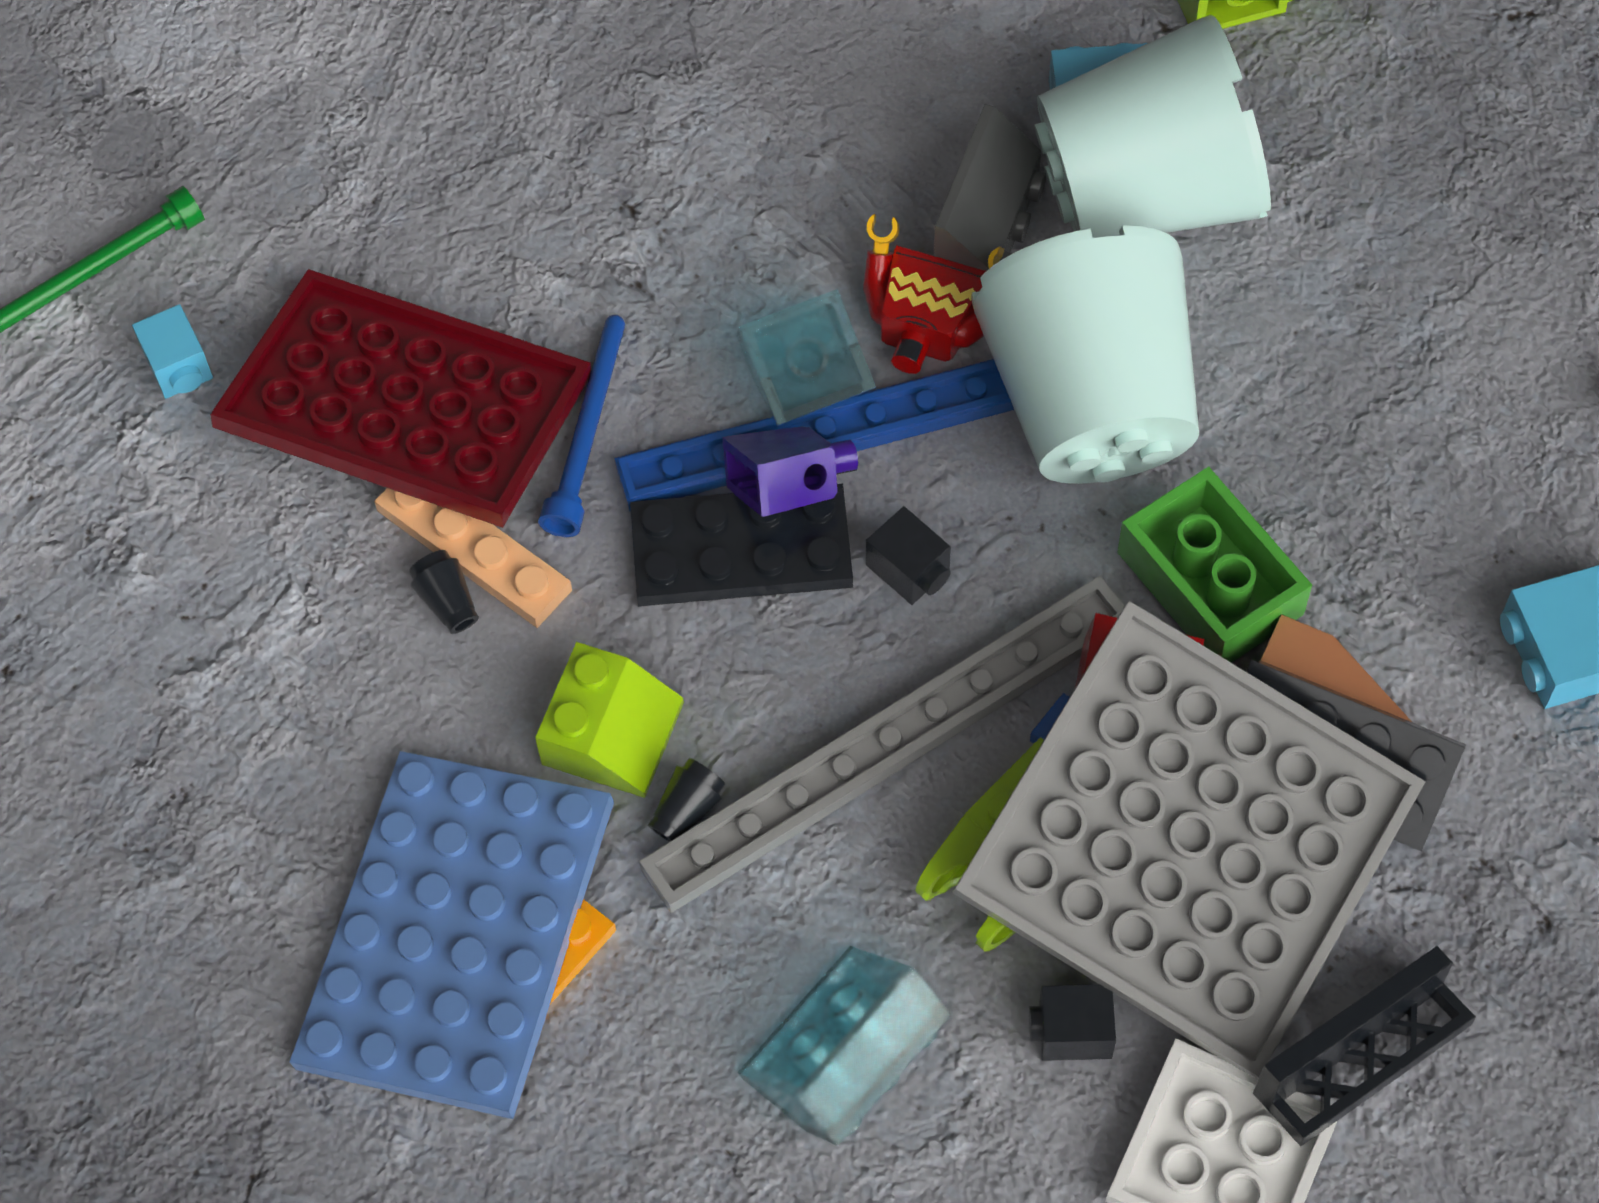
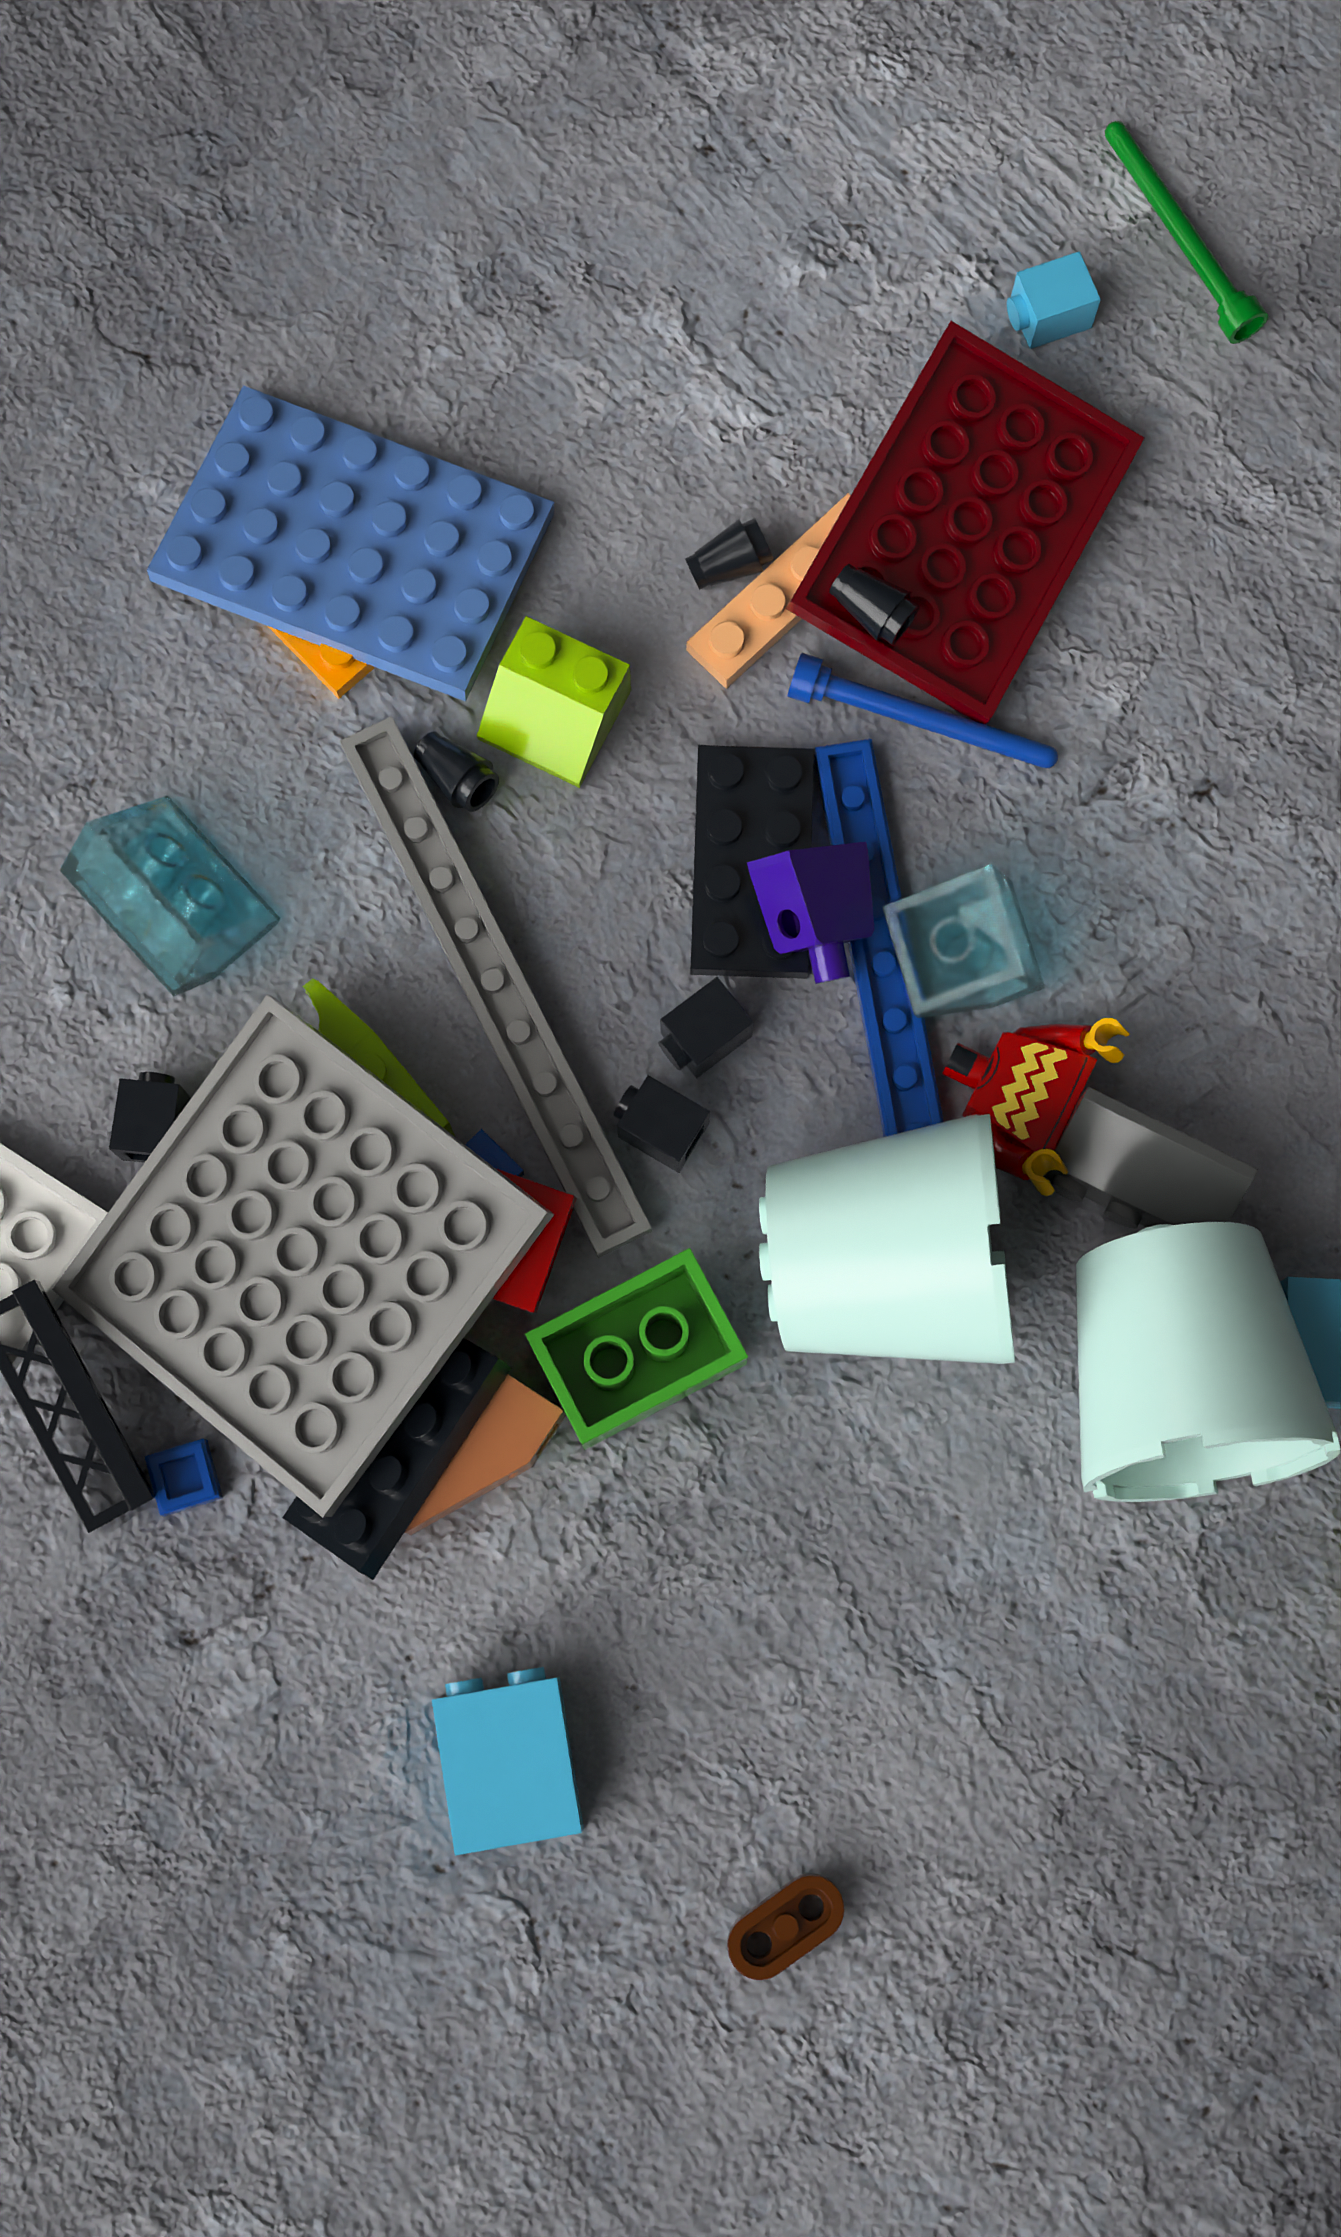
camera: 95 degrees right, 15 degrees up
(502, 439) = (875, 603): none -> black cone
(1002, 580) = (661, 1122): none -> black brick
(1398, 942) = (183, 1477): none -> blue tile

